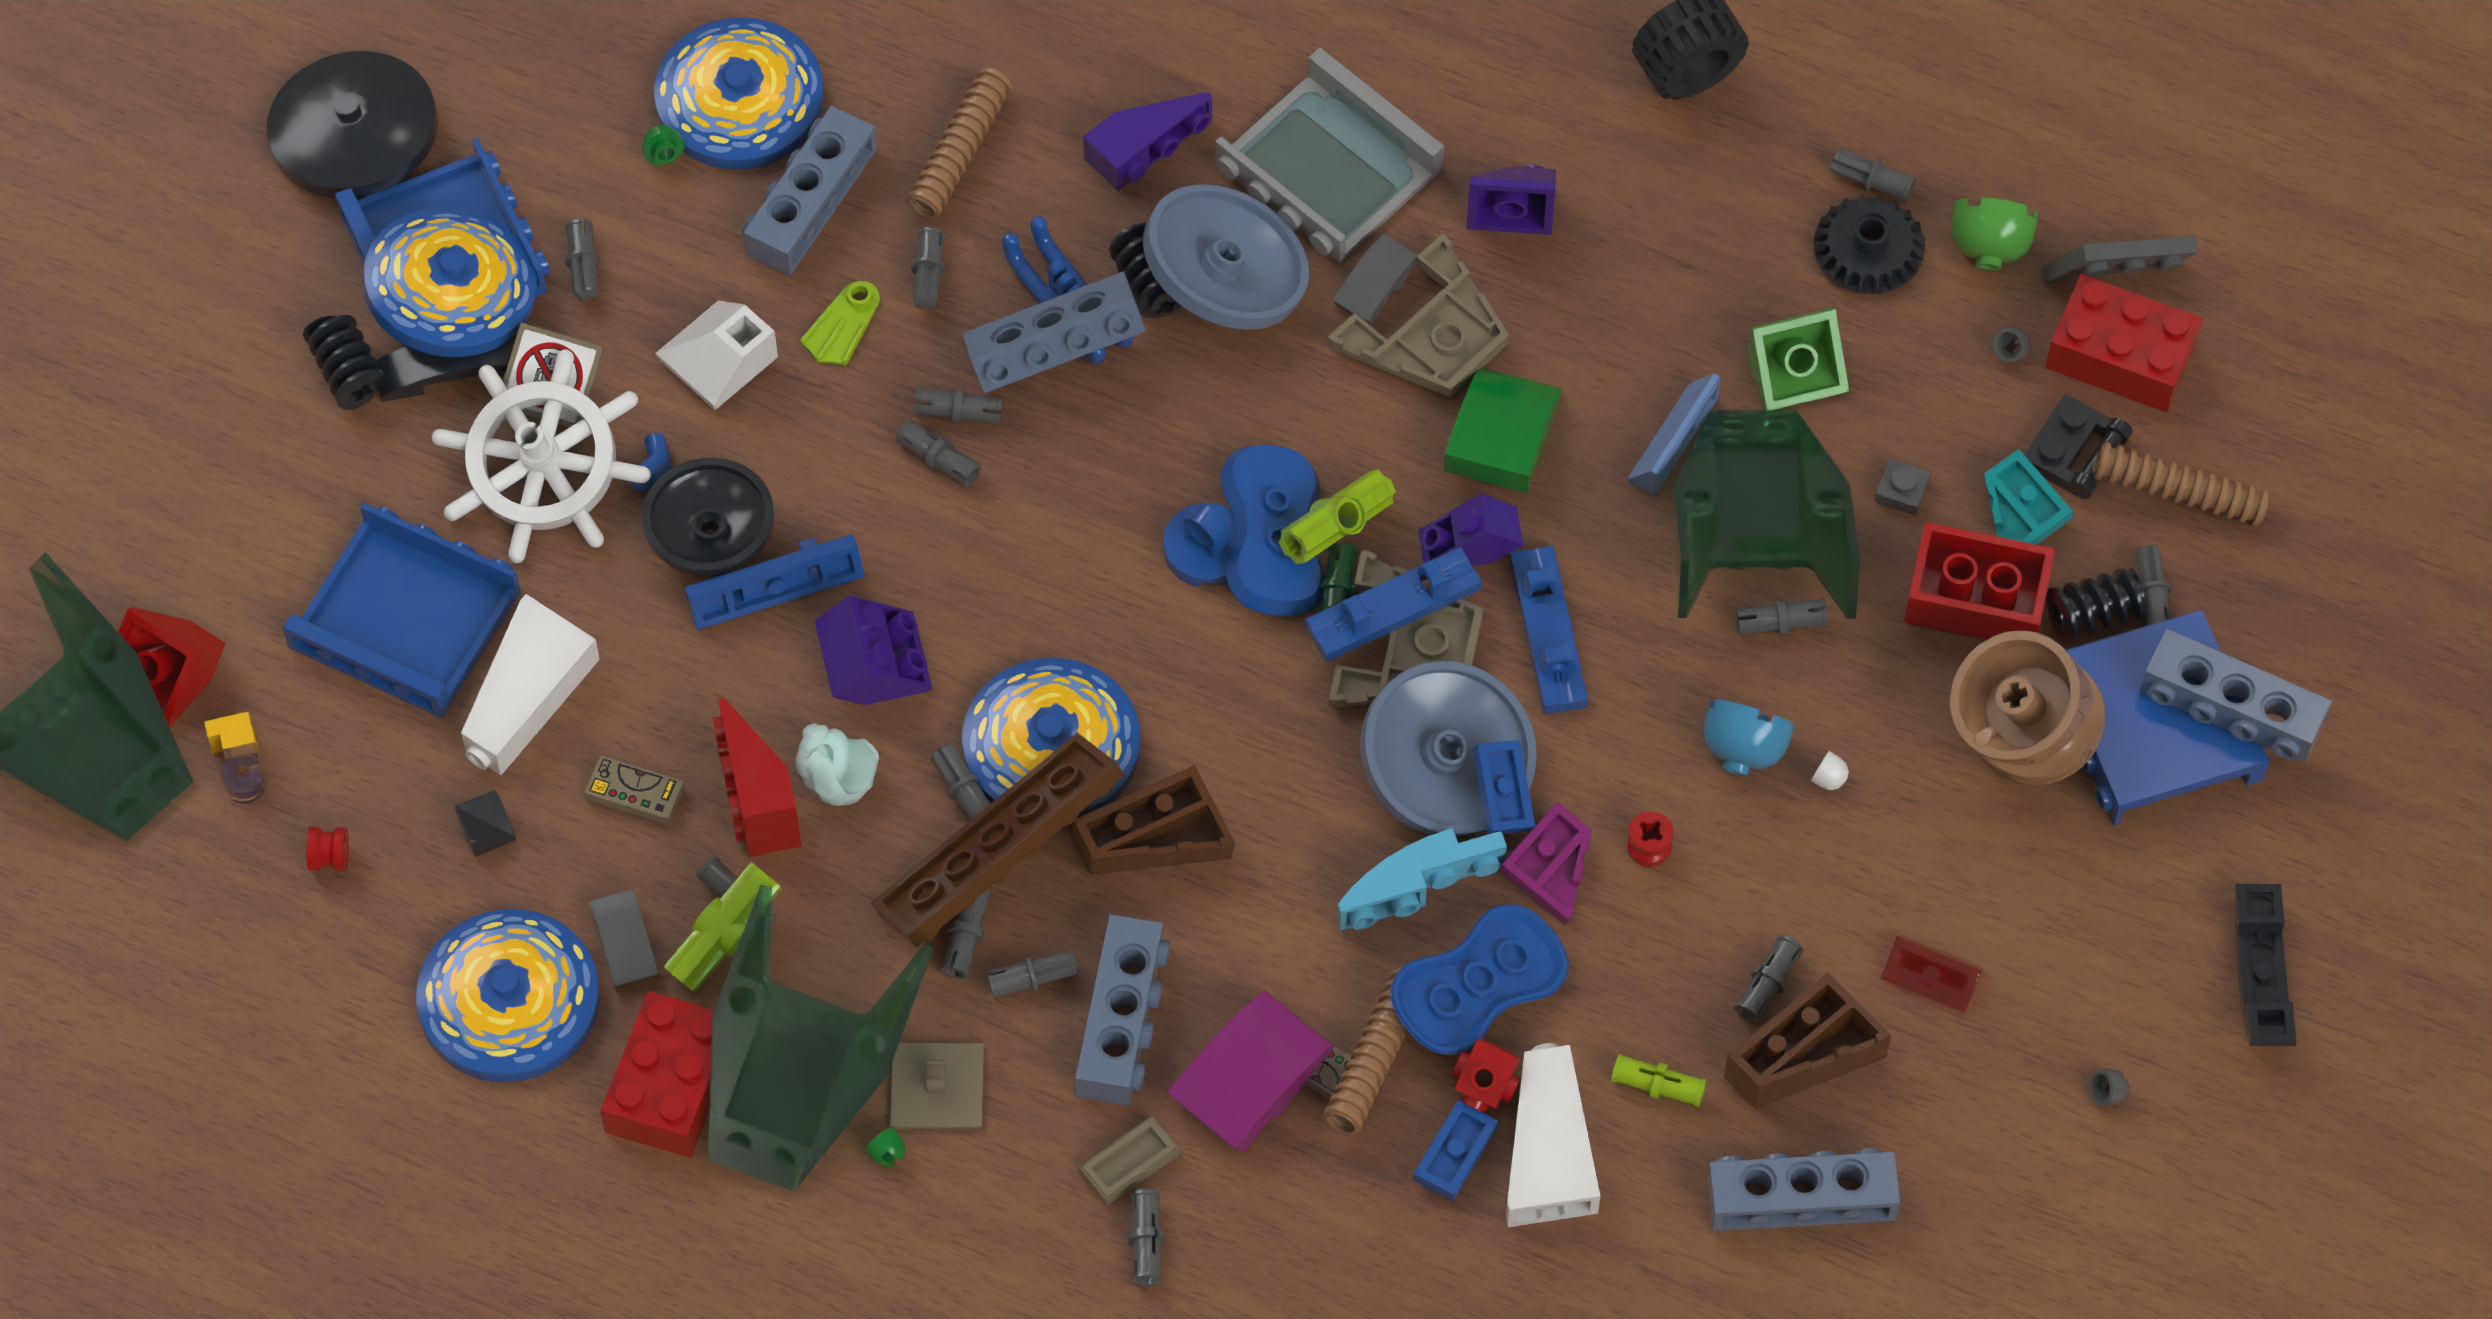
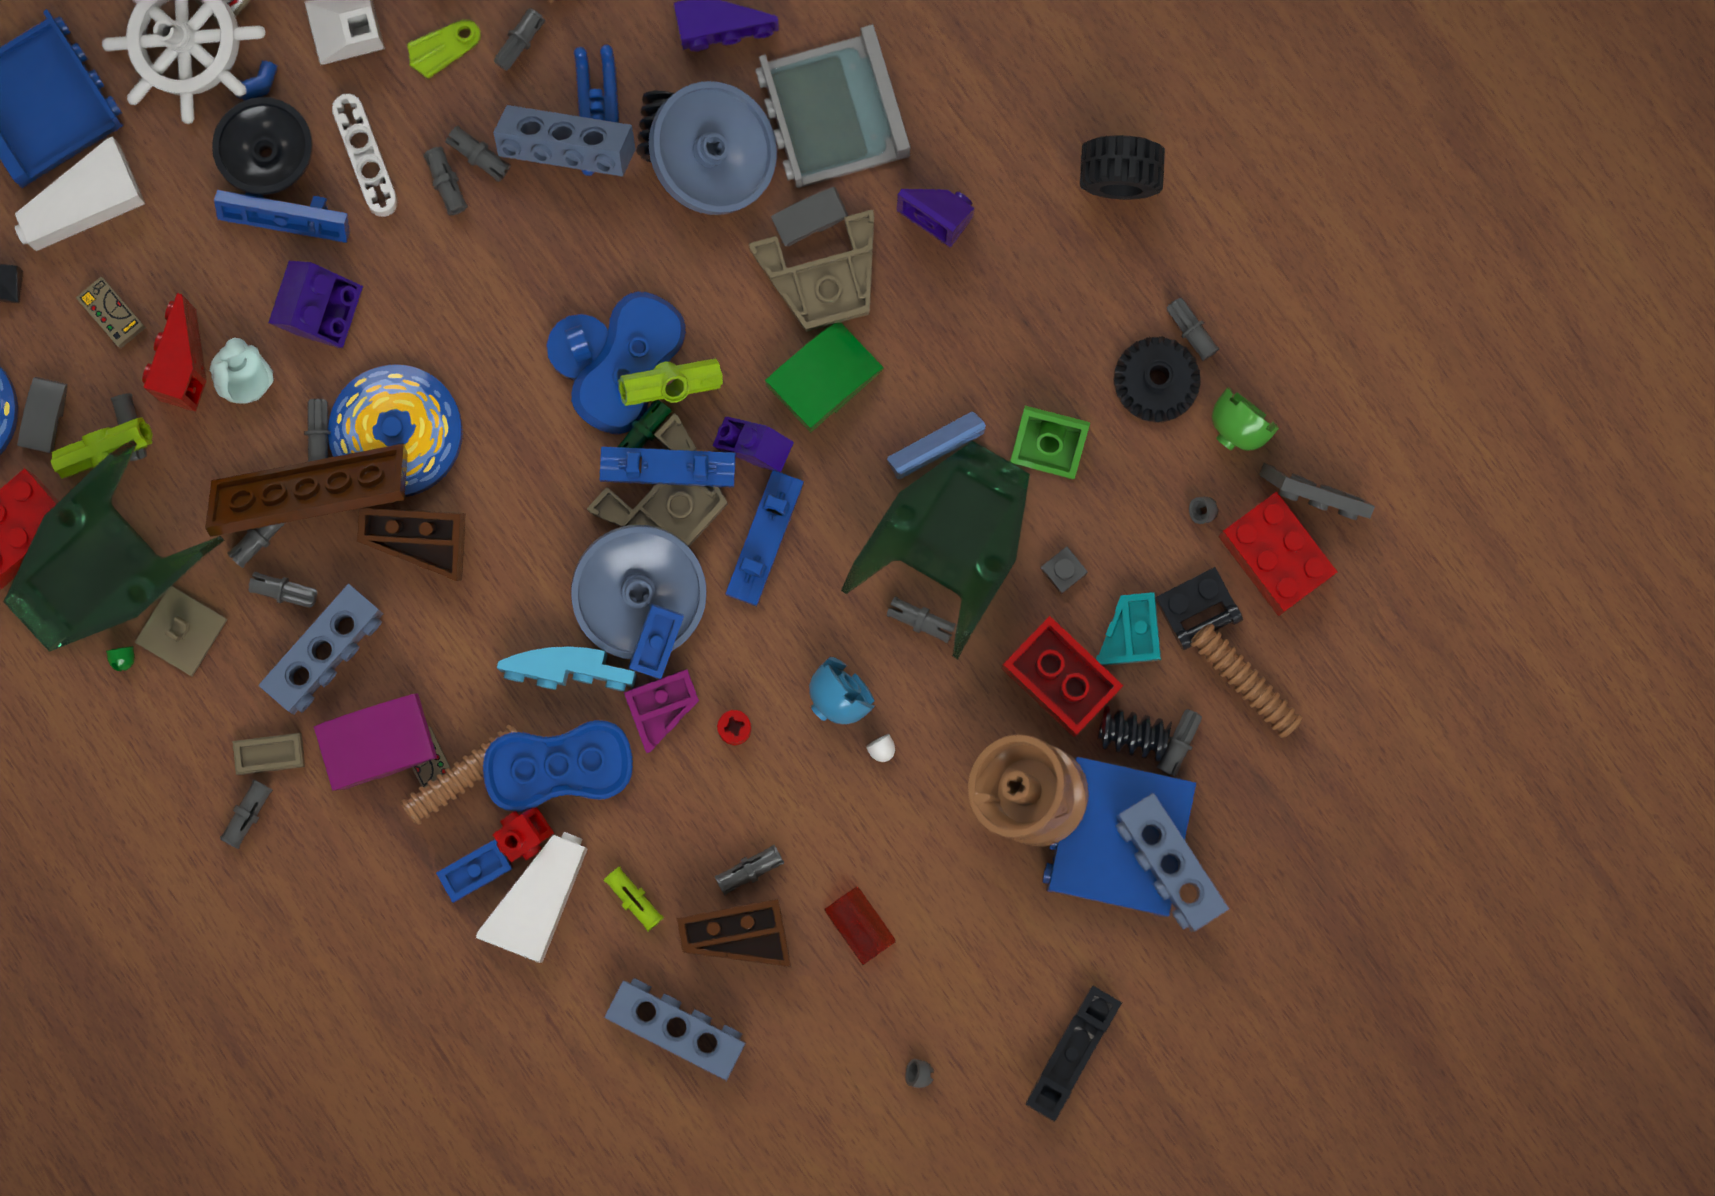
camera: 30 degrees right, 20 degrees up
(822, 479) = (361, 156): none -> white beam

